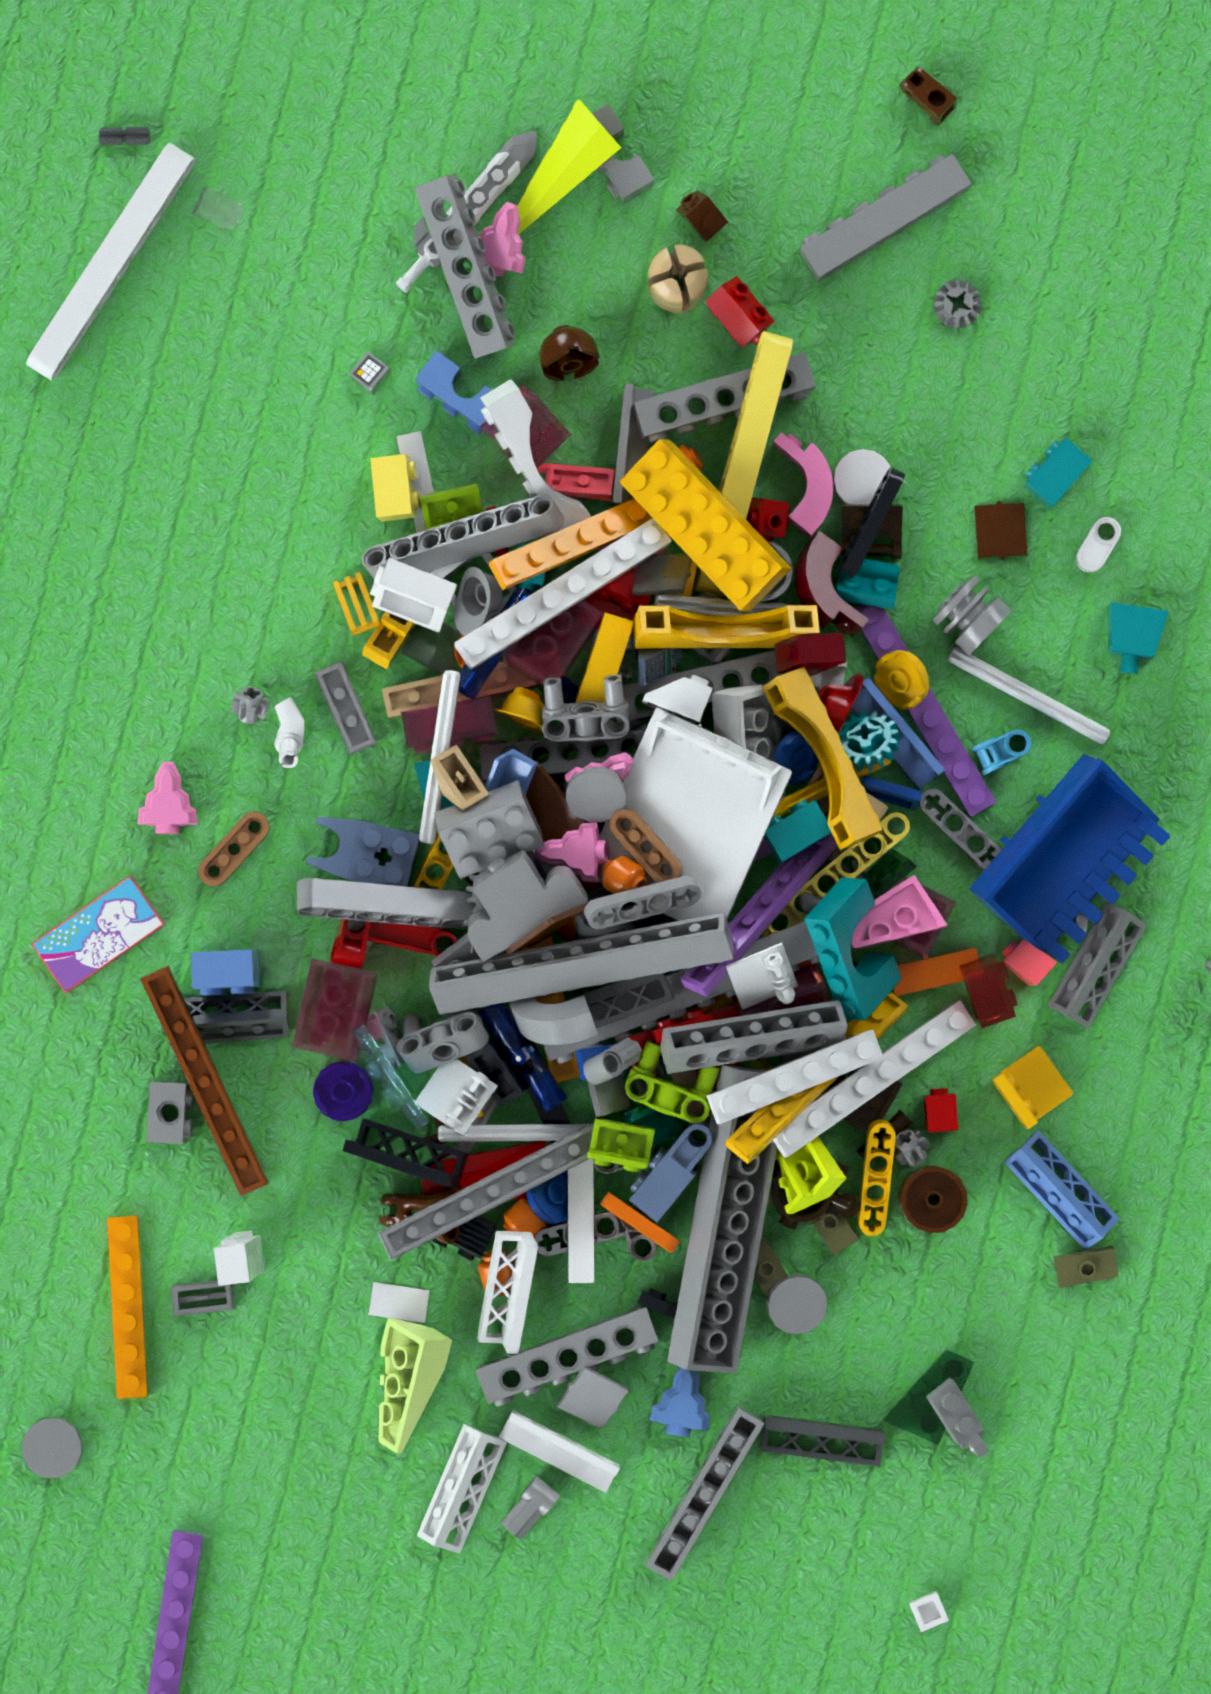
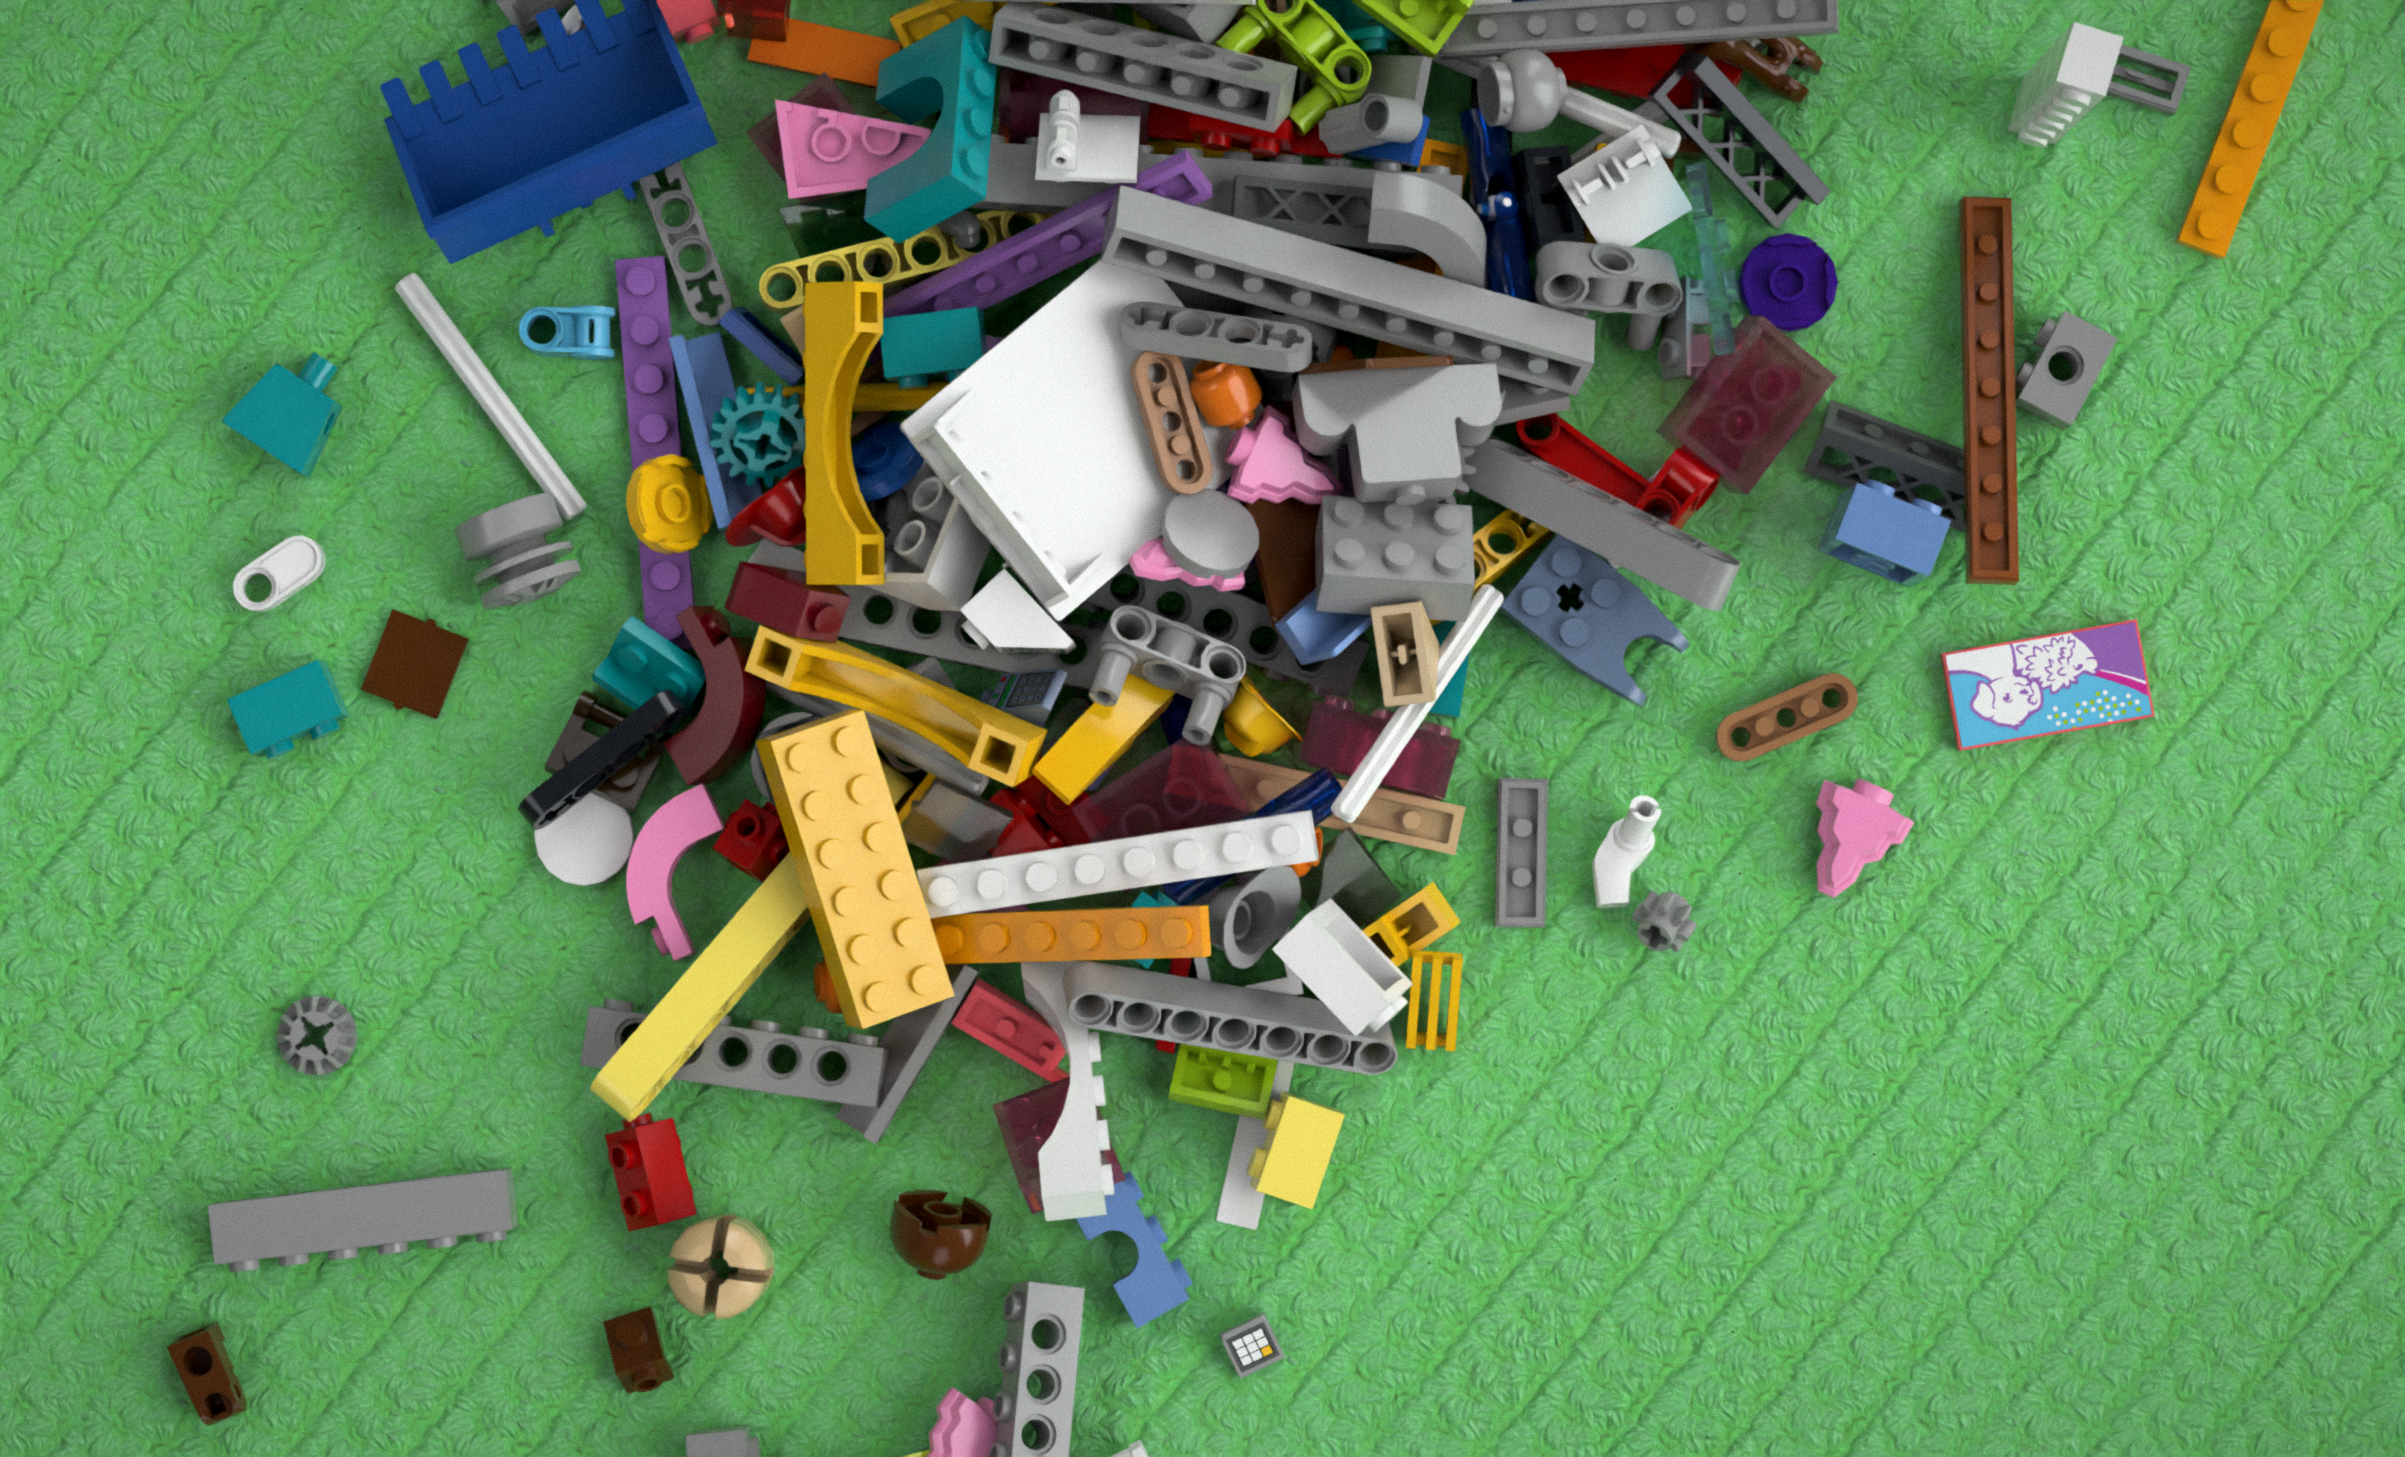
camera: 155 degrees left, 0 degrees up
(538, 1122) = (1521, 91): none -> light grey piece

